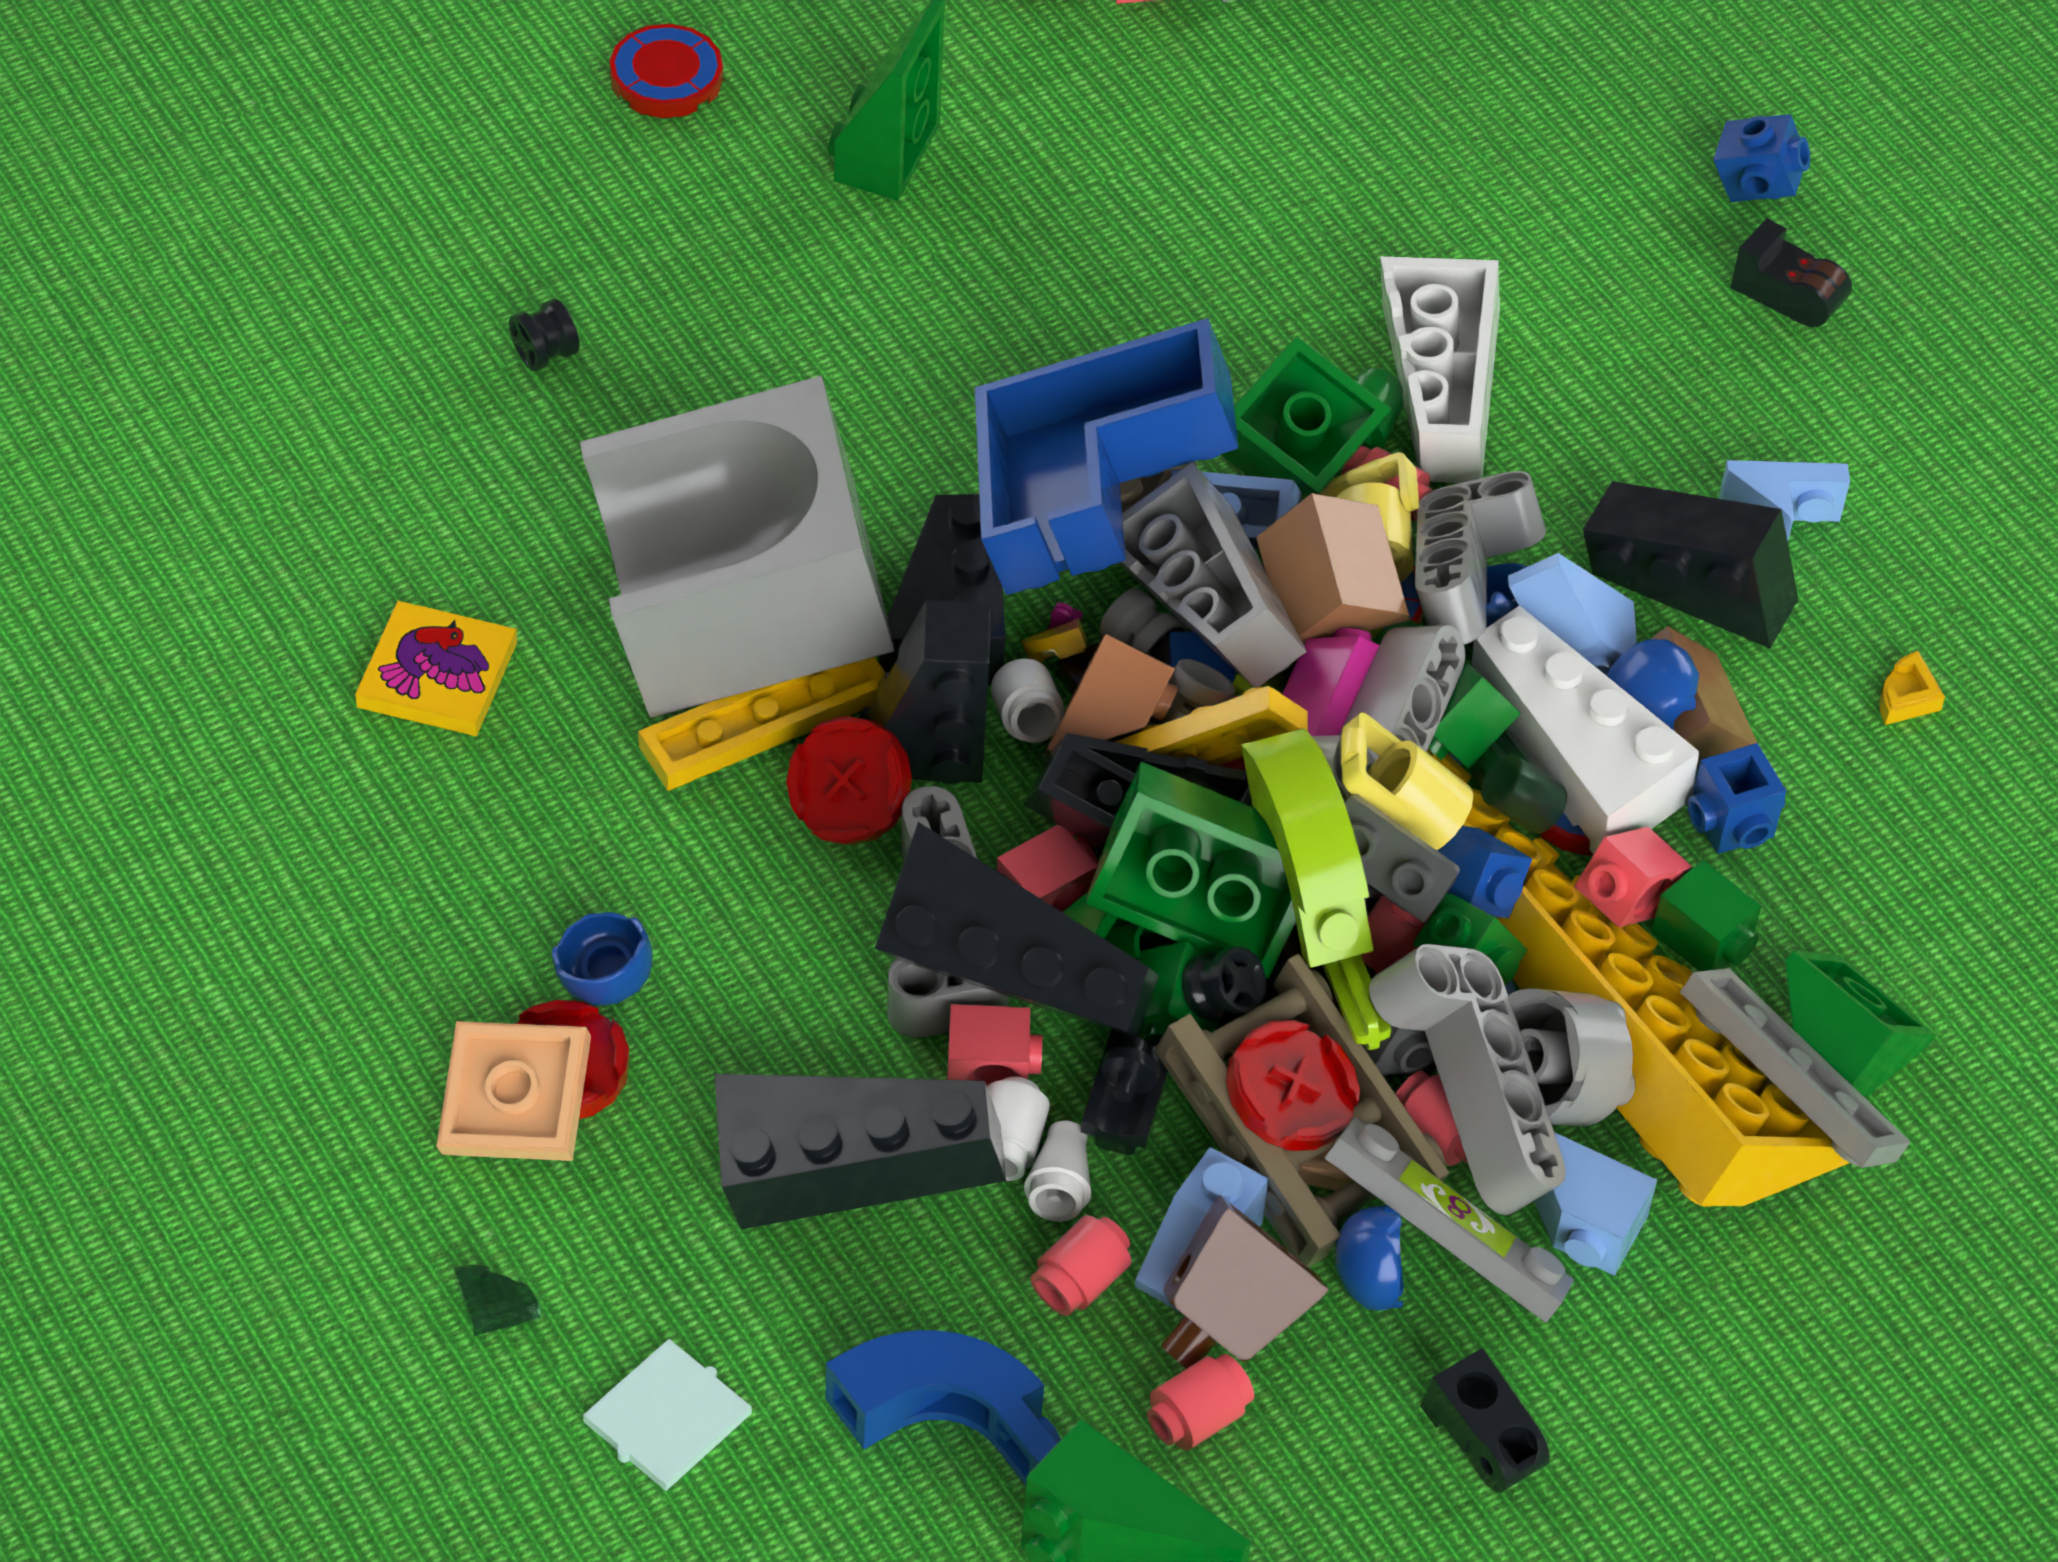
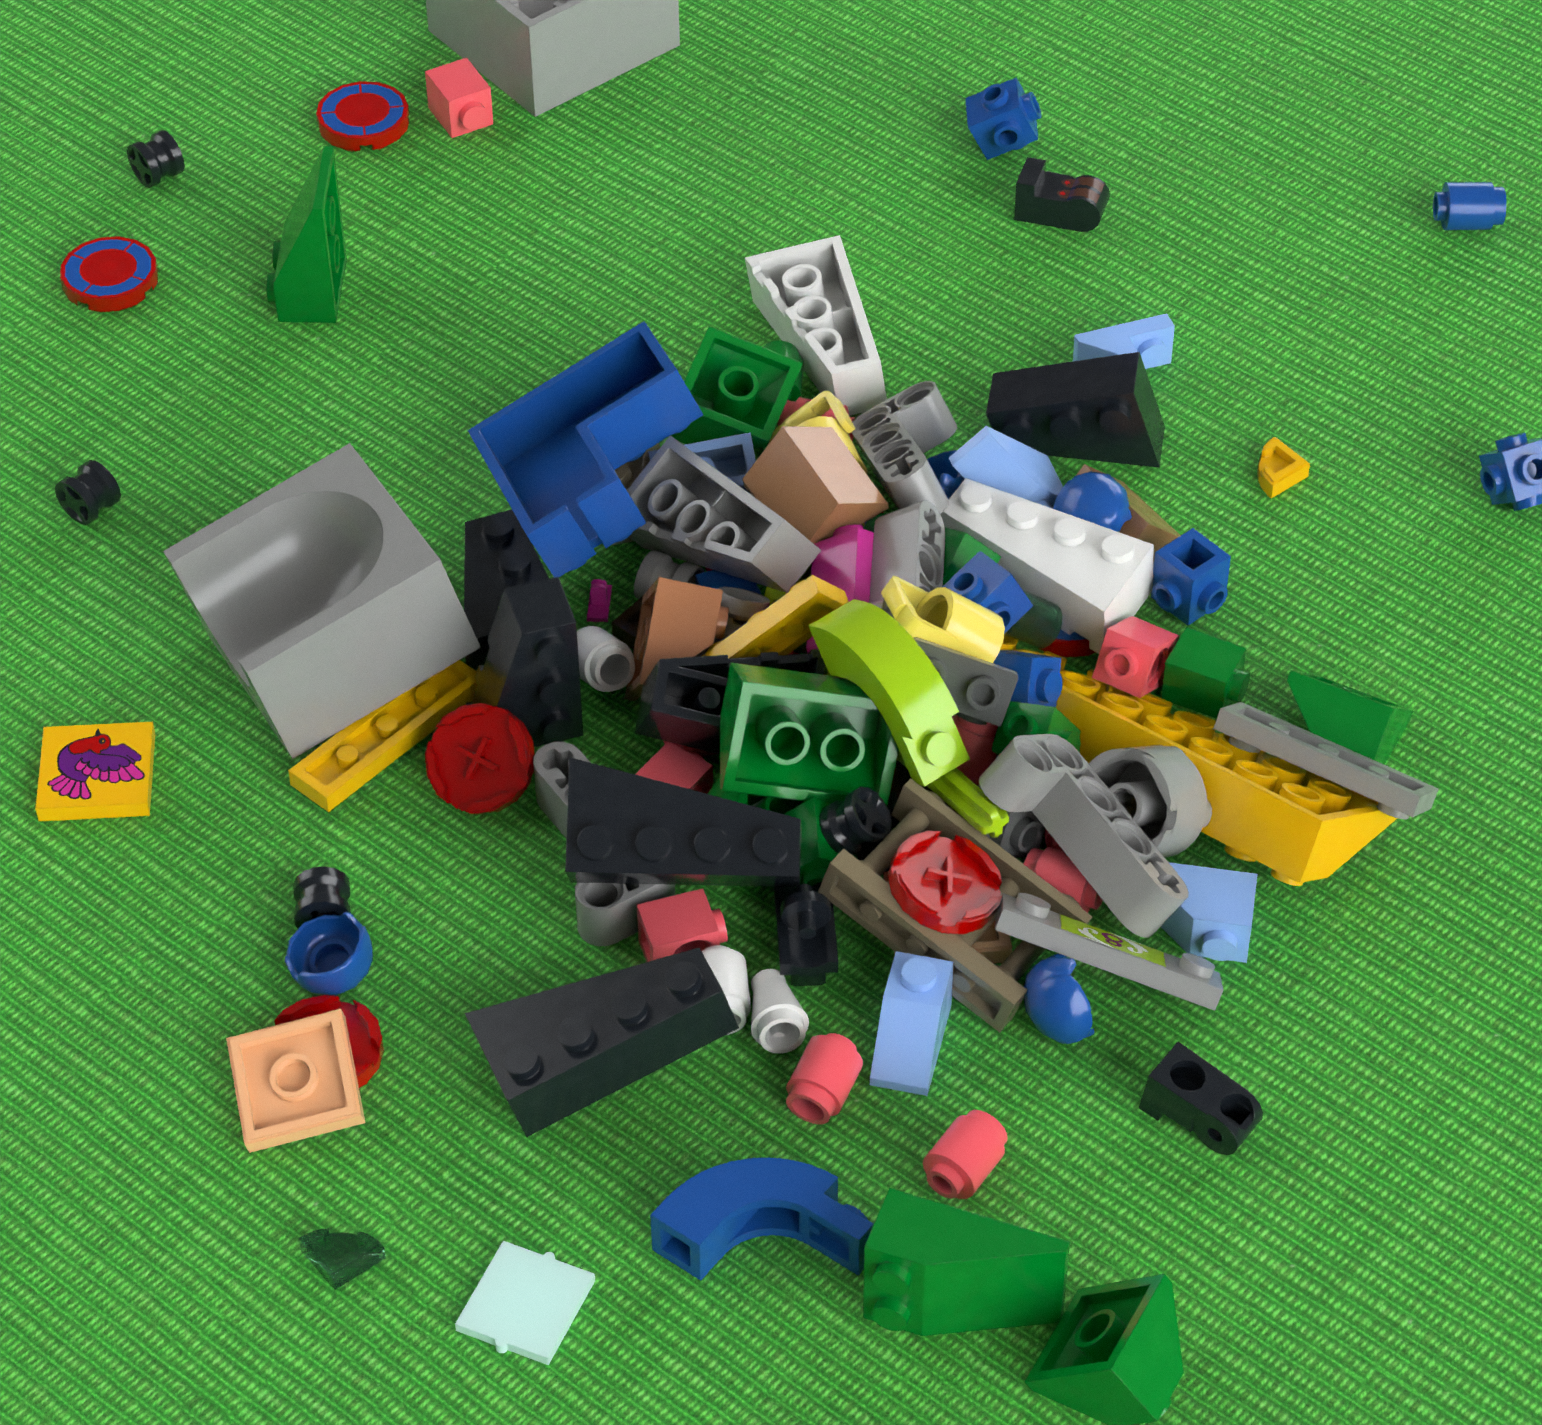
camera: 15 degrees left, 5 degrees down
(620, 887) = (320, 893): none -> black wheel
(1060, 641) = (609, 606): yellow tile -> none
(1235, 1288) = (961, 1054): torso -> none
(1478, 756) = (992, 588): none -> blue brick

